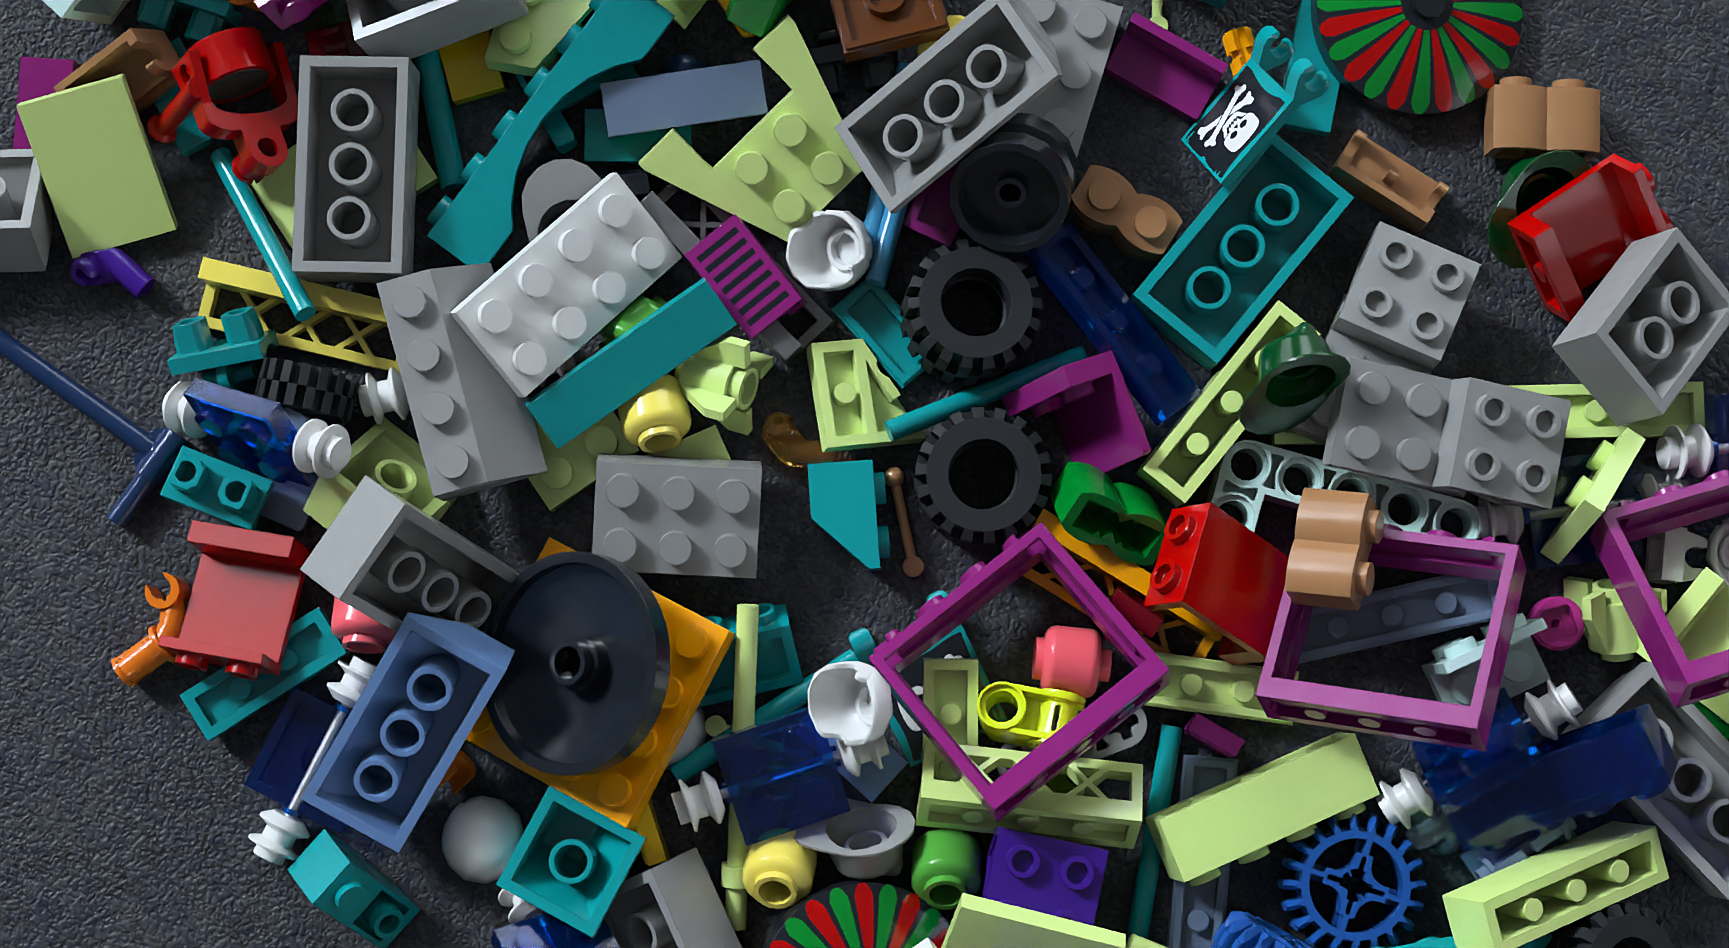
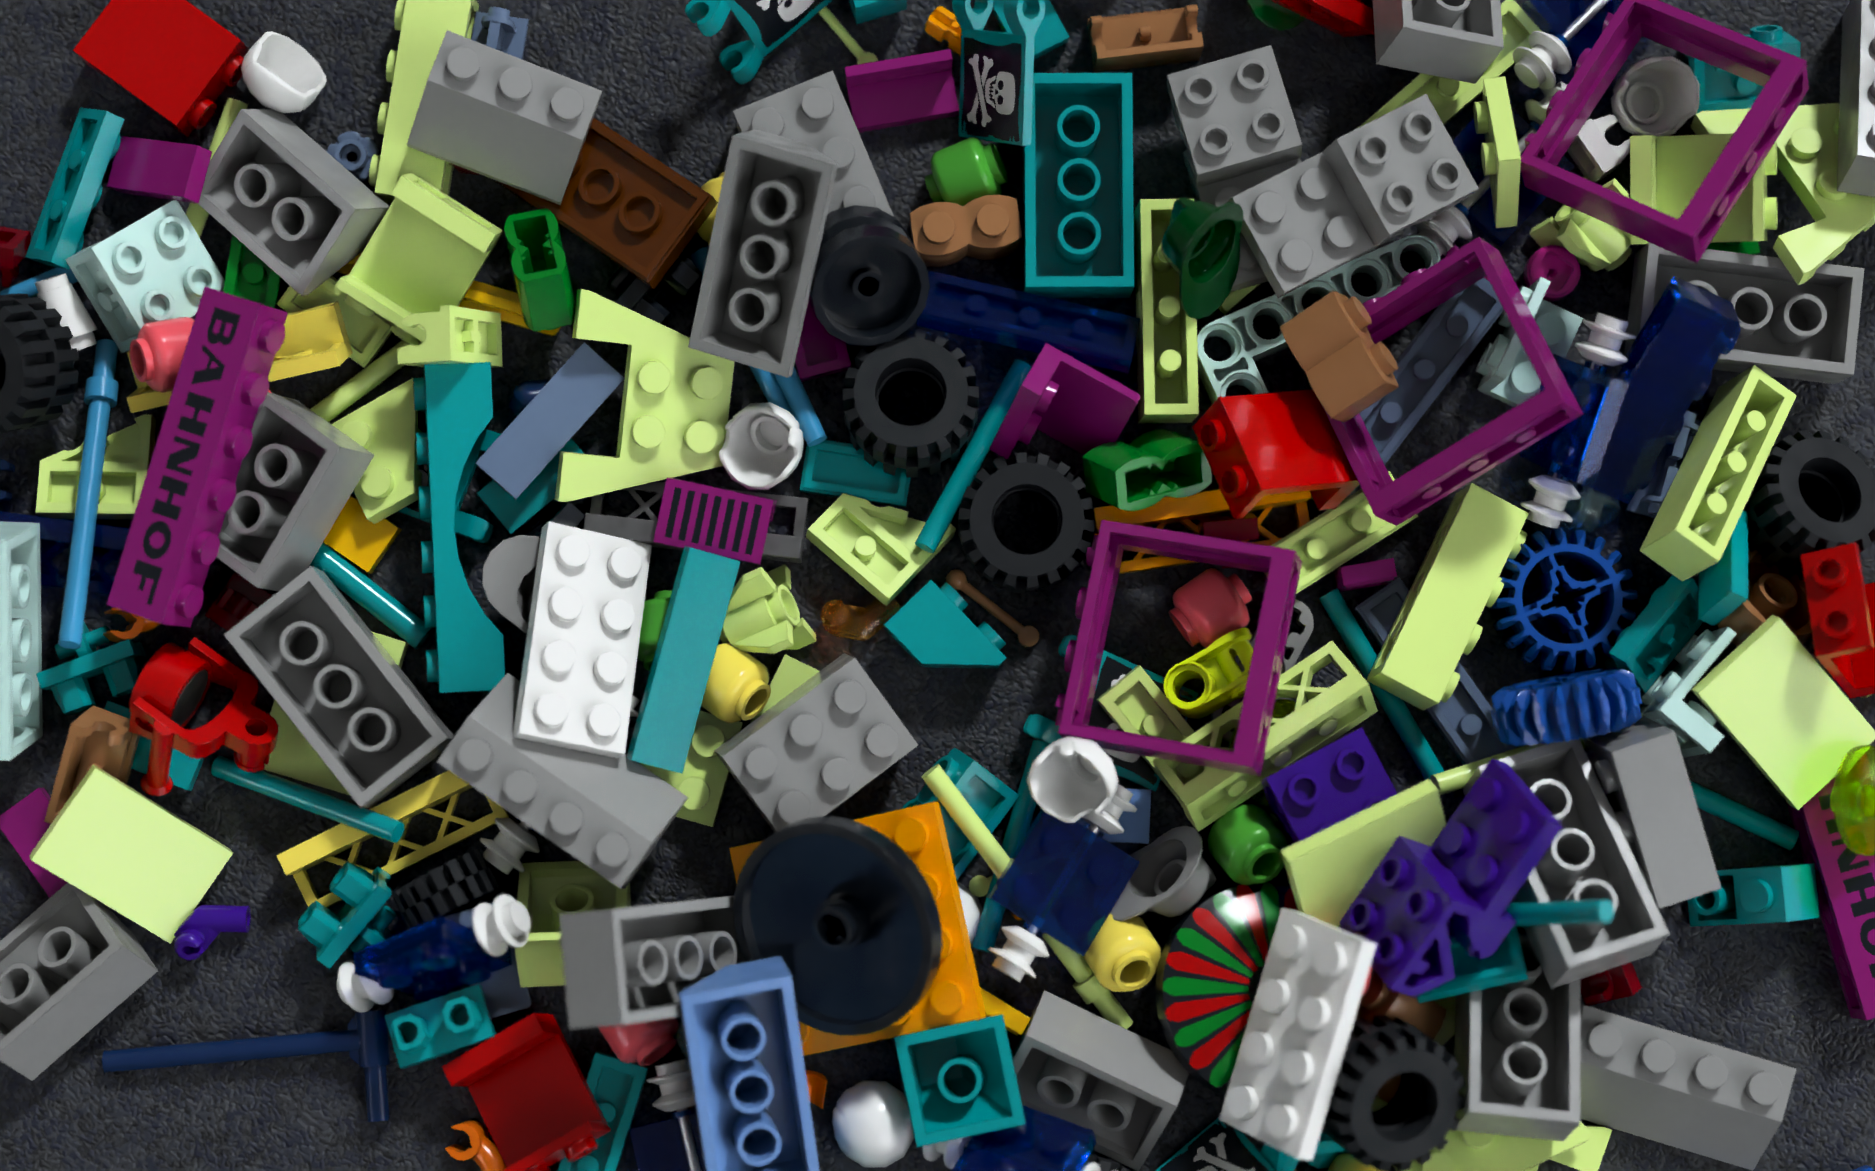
camera: 45 degrees left, 0 degrees up
(1162, 170) = (966, 172): none -> bright green head

